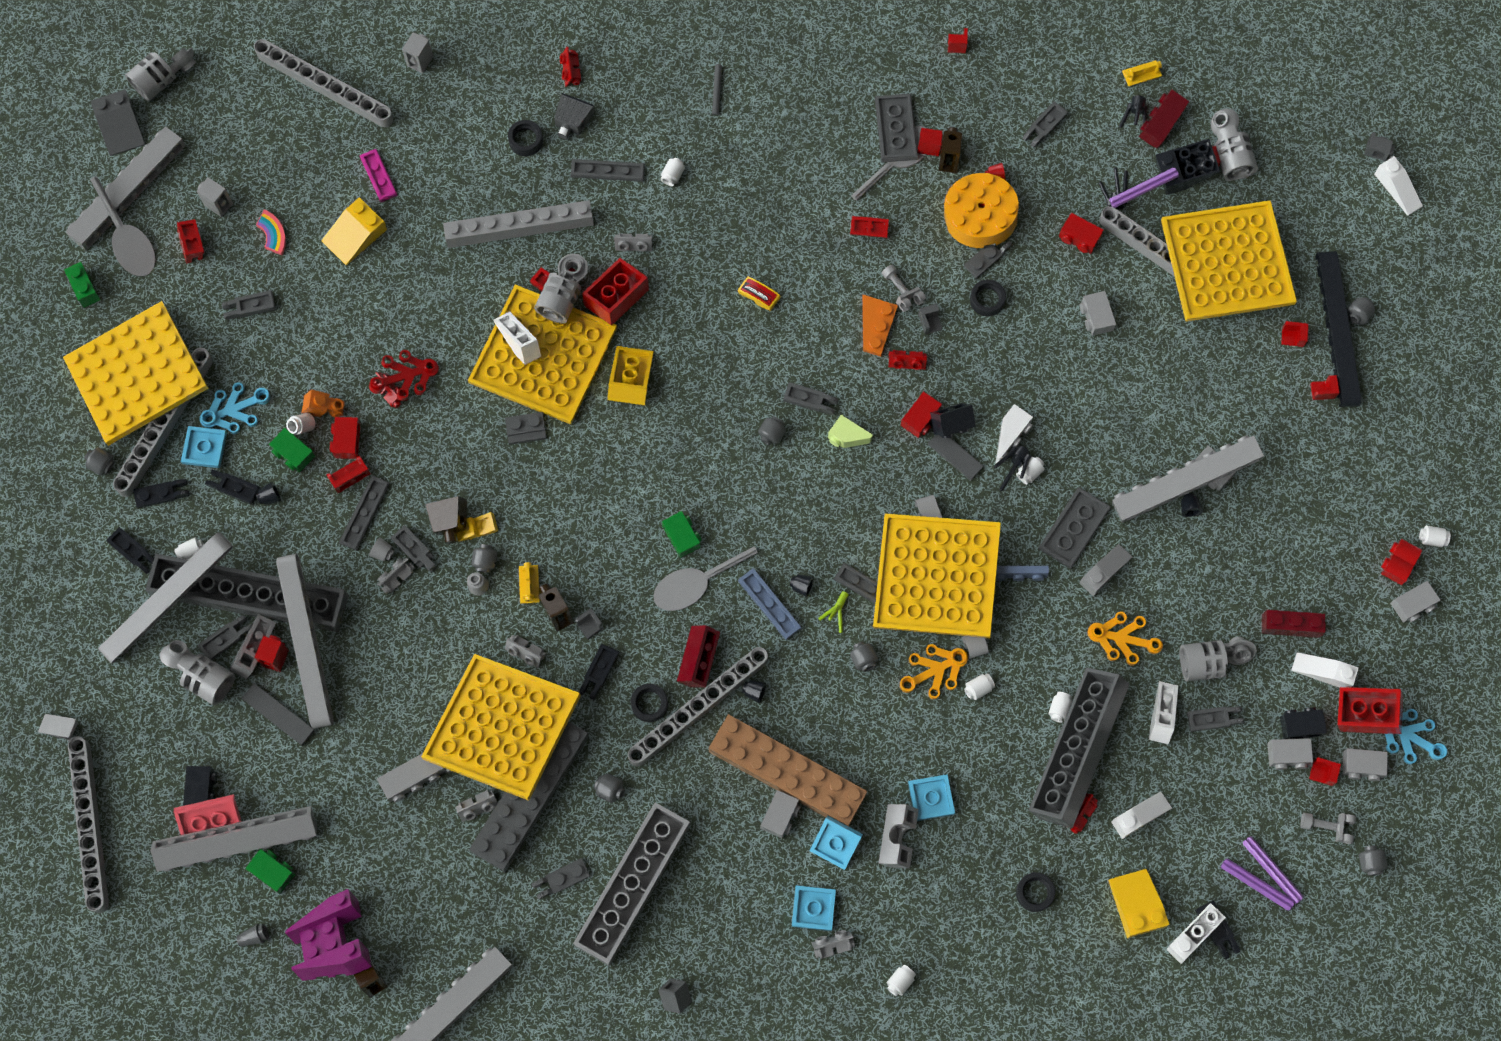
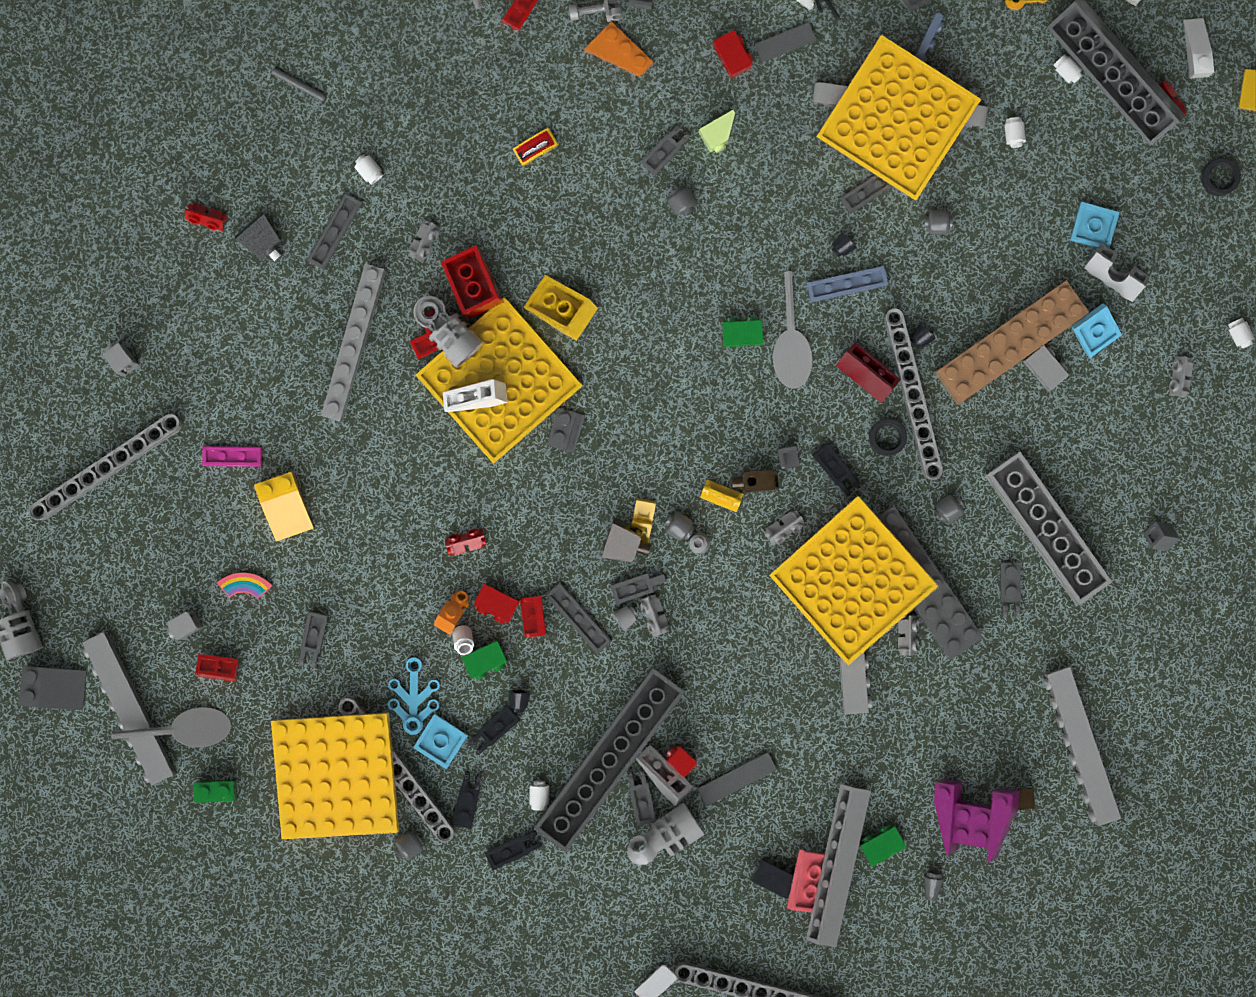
camera: 65 degrees left, 15 degrees up
(166, 597) = (584, 835): light grey beam -> none
(304, 641) = (686, 724): light grey beam -> none
(405, 374) = (460, 518): red plant -> none
(525, 150) = (248, 290): black tyre -> none
(813, 908) = (1142, 378): medium azure plate -> none
(838, 607) = (881, 224): lime plant -> none
(914, 360) = (674, 31): red hinge -> none
(936, 668) = (979, 162): light orange plant -> none
(953, 419) = (754, 27): black brick -> none

